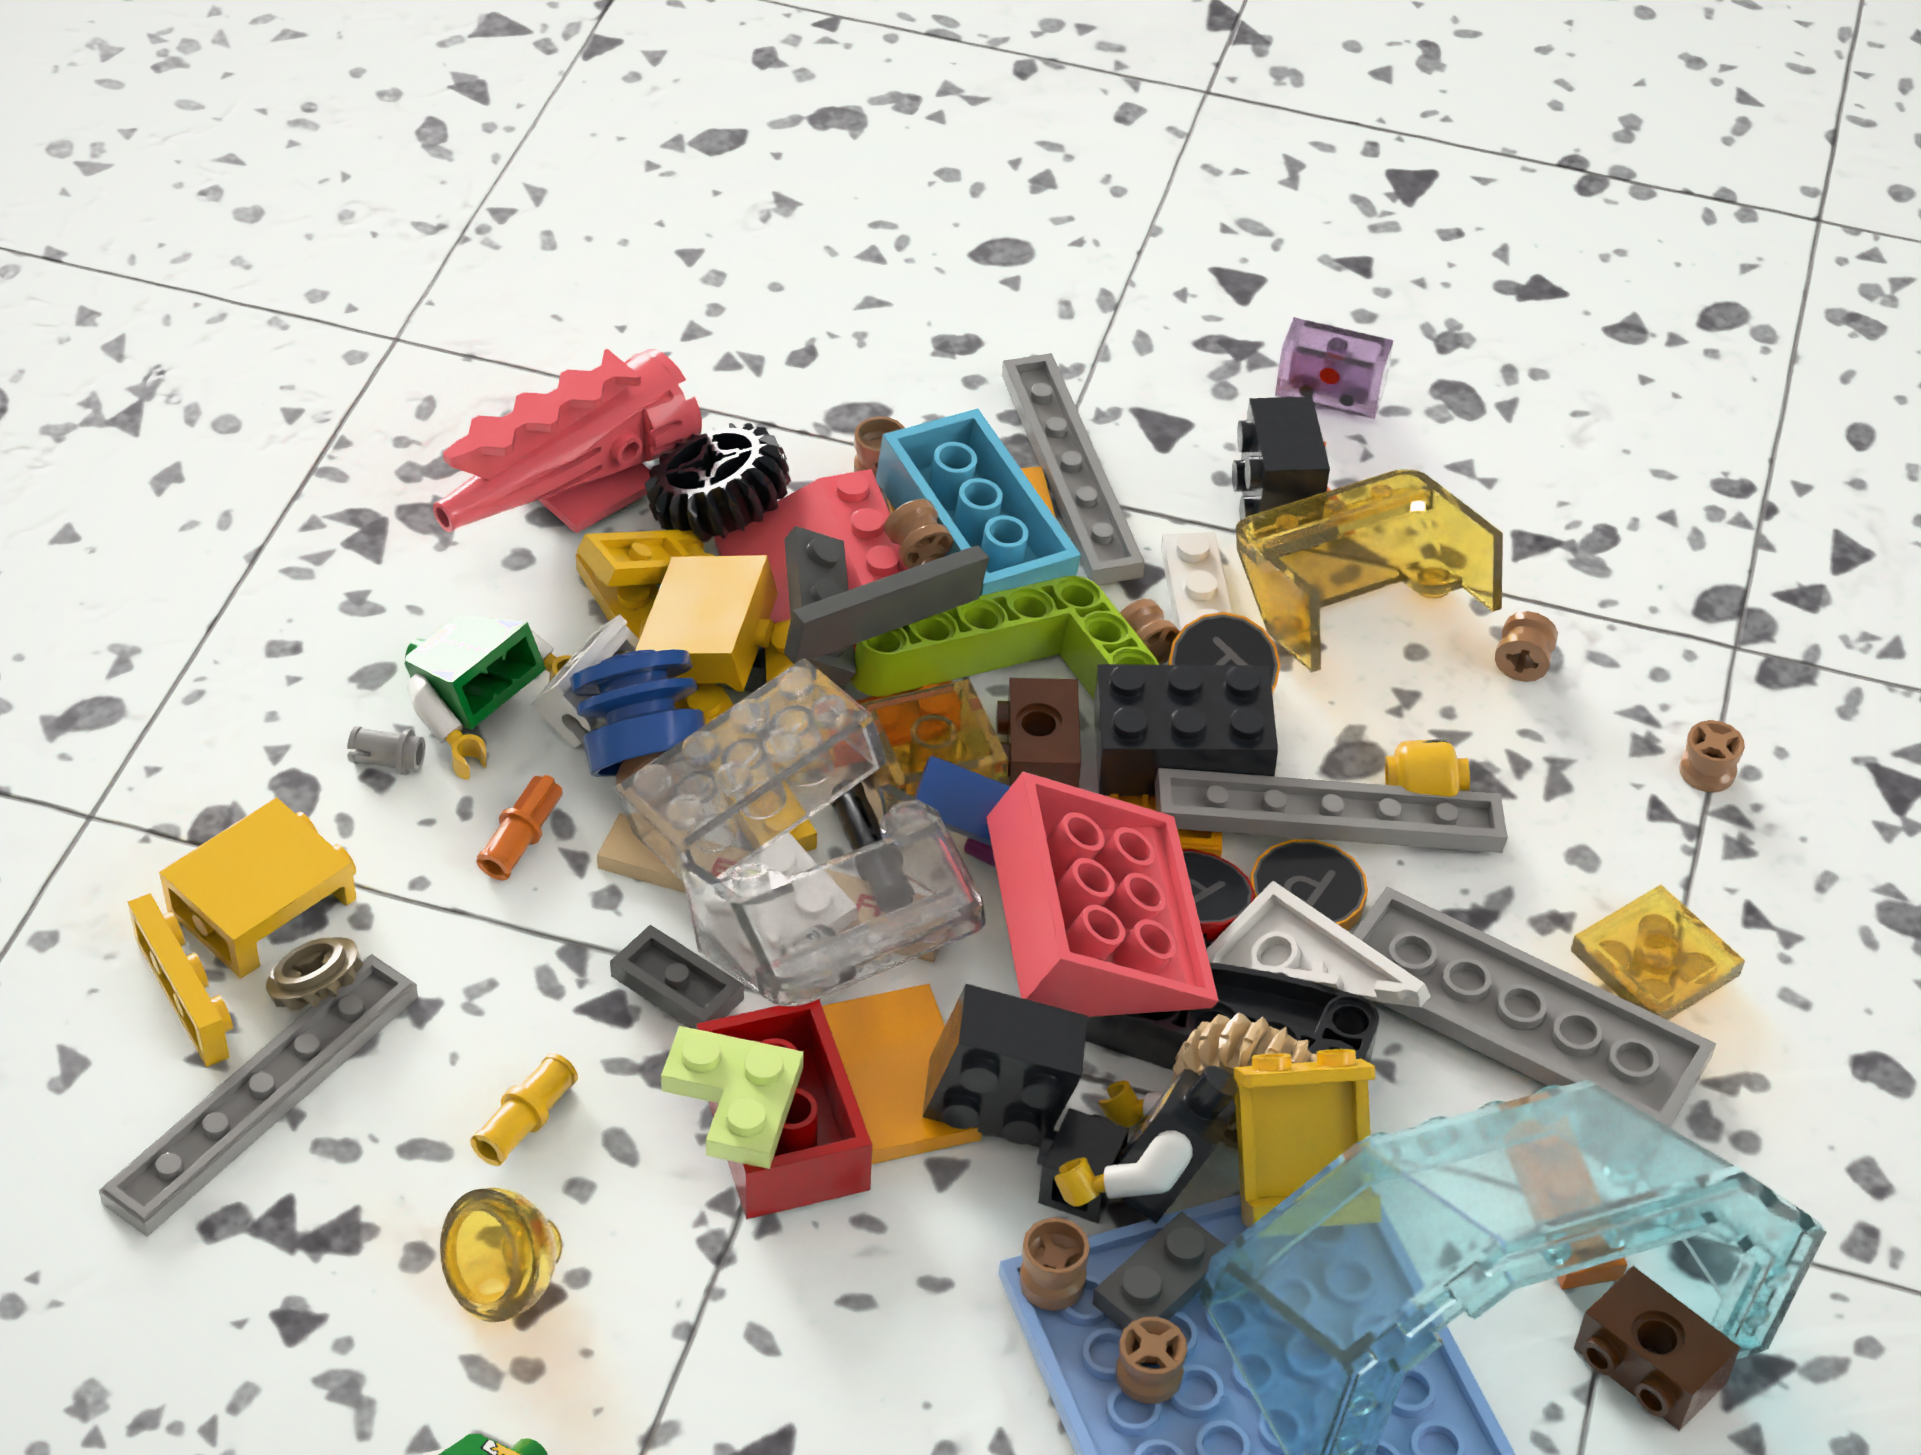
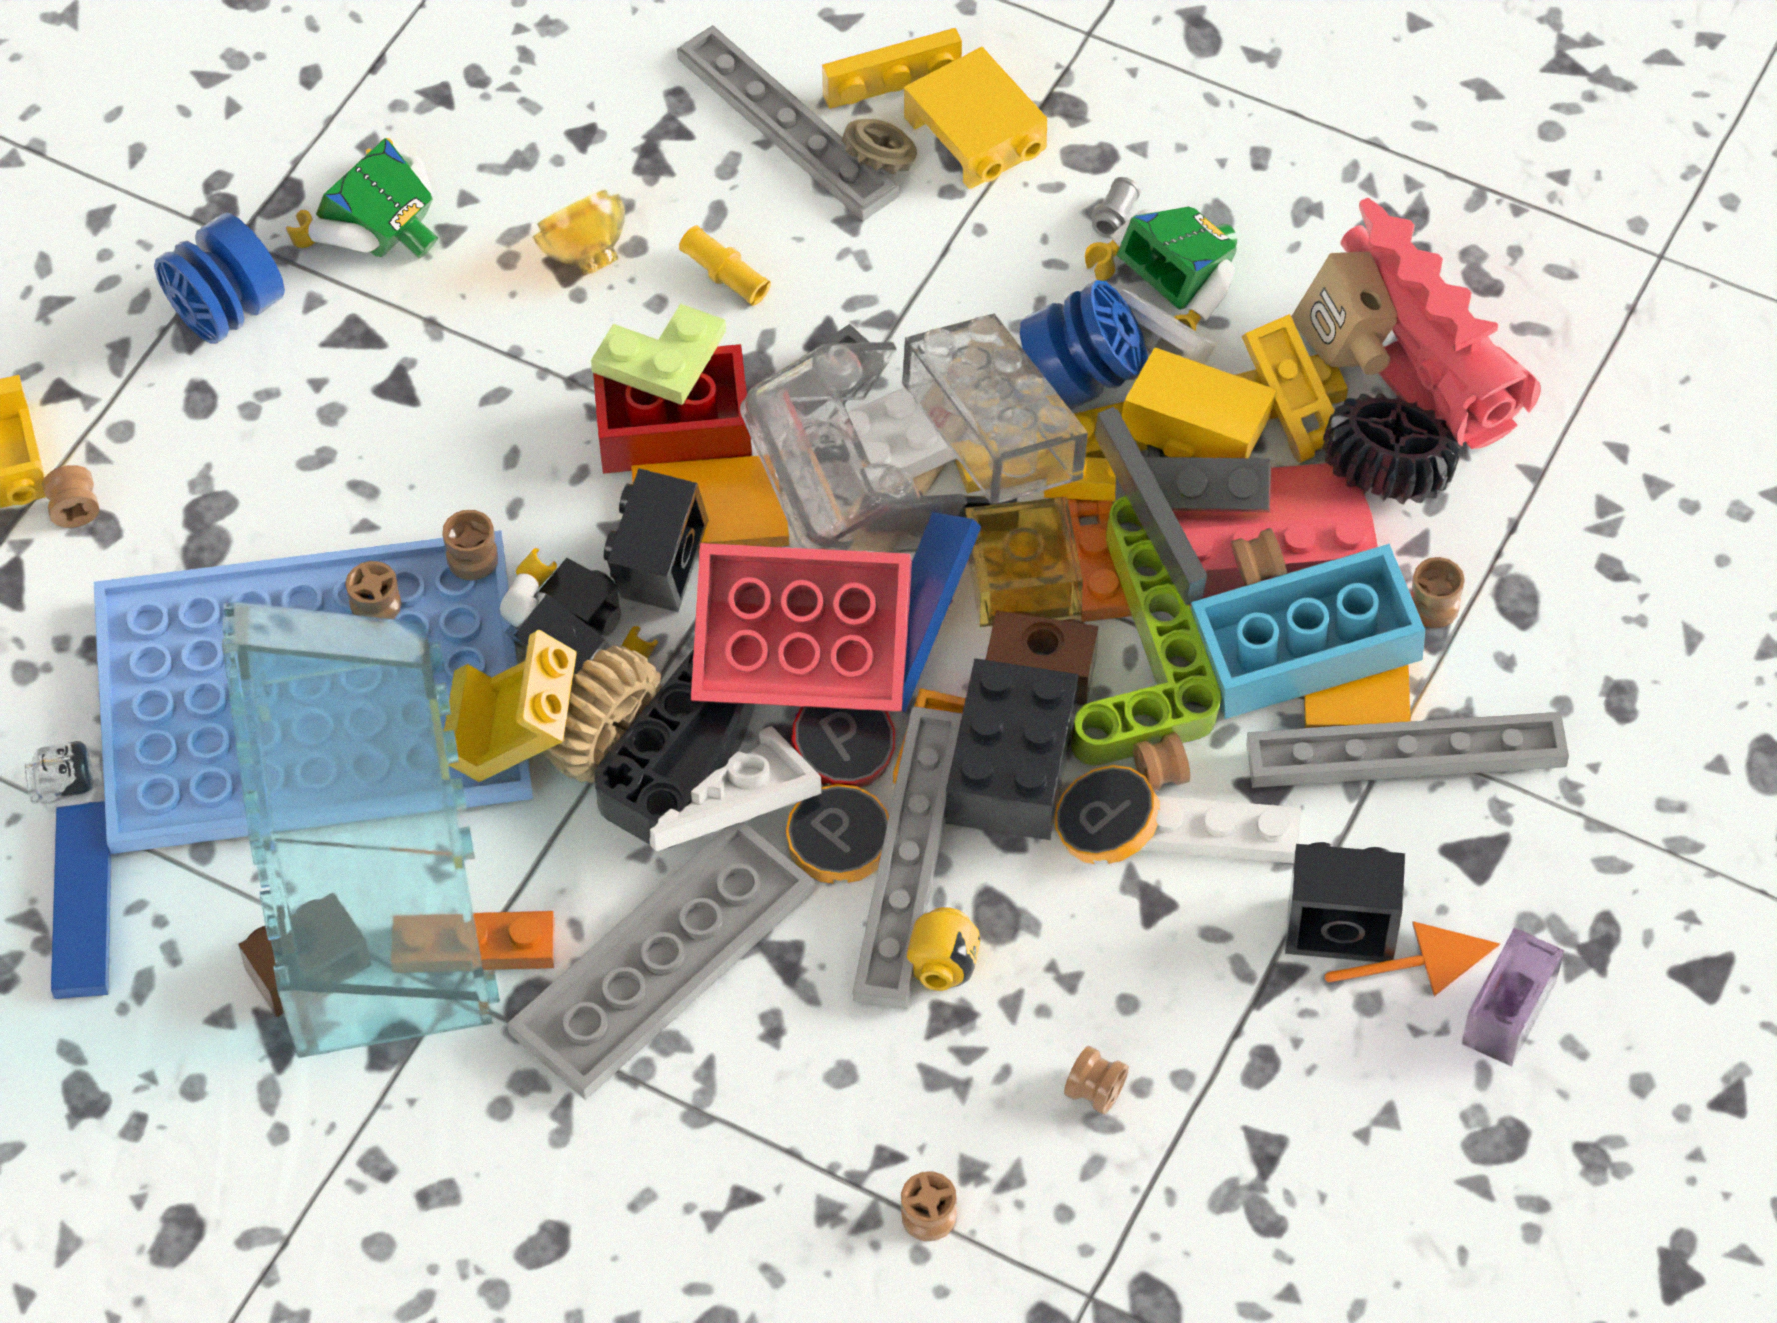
camera: 105 degrees right, 10 degrees up
(519, 827) = (1009, 284): orange axle -> none
(546, 517) = (1347, 313): none -> tan torso
(1159, 1274) = (452, 621): dark grey plate -> none
(1359, 542) = (1239, 923): clear yellow windscreen -> none
(1657, 954) = (699, 1083): clear yellow plate -> none

